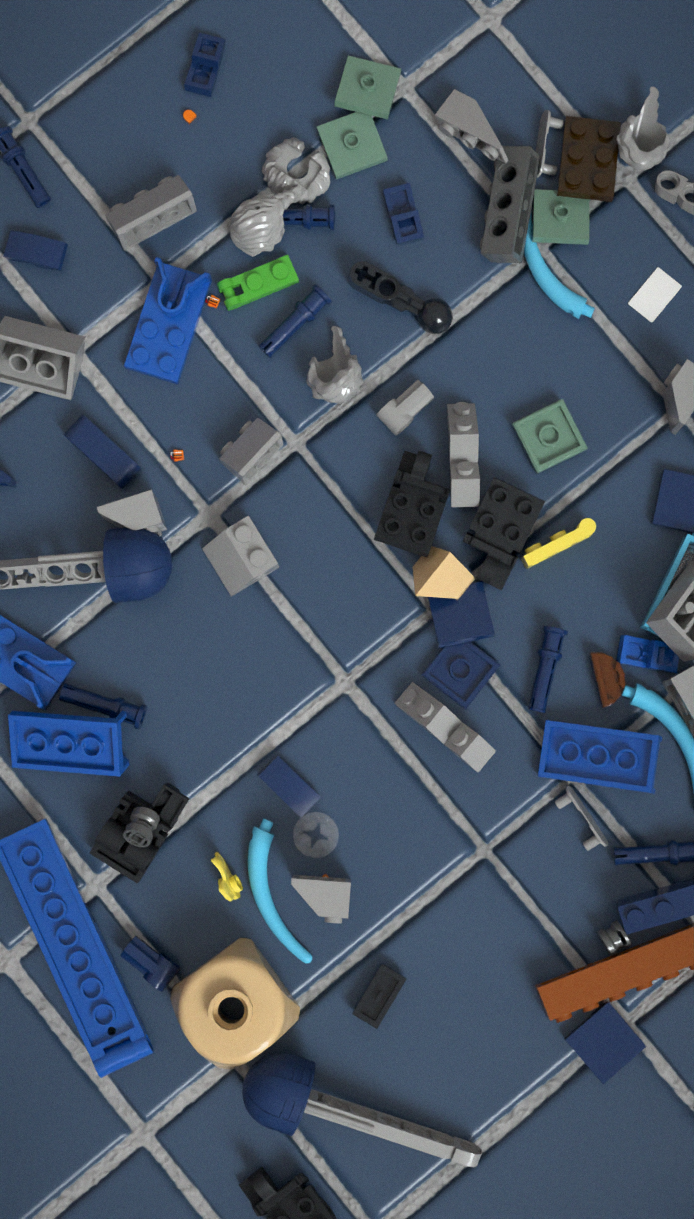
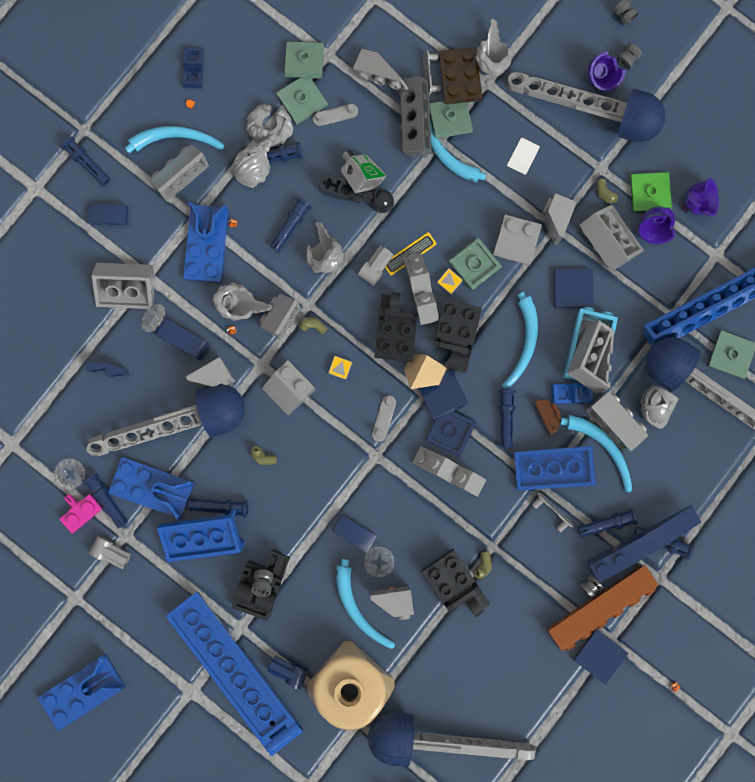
camera: 15 degrees left, 0 degrees up
(68, 412) = (153, 317): none -> clear gear
(129, 149) = (151, 135): none -> medium azure animal
(179, 648) = (261, 458): none -> olive arm
(193, 417) = (237, 302): none -> light grey hair
(229, 884) = (329, 608): light yellow plate -> none
(258, 282) = (260, 204): bright green plate -> none
(297, 470) = (312, 322): none -> olive arm
(321, 543) = (340, 367): none -> tile
(368, 630) = (384, 418): none -> light grey piece
(379, 996) = (445, 659): black plate -> none
(394, 176) = (335, 115): none -> light grey piece
(403, 213) = (345, 136): dark blue slope -> none
(414, 268) = (361, 172): none -> light grey torso
(418, 890) = (455, 583): none -> black plate
(466, 876) = (485, 567): none -> olive arm
(473, 393) = (419, 246): none -> sticker
(507, 453) = (449, 281): none -> tile
(560, 542) = (497, 332): light yellow plate -> none
(612, 538) = (531, 326): none -> medium azure animal
(618, 414) = (517, 239): none -> light grey slope

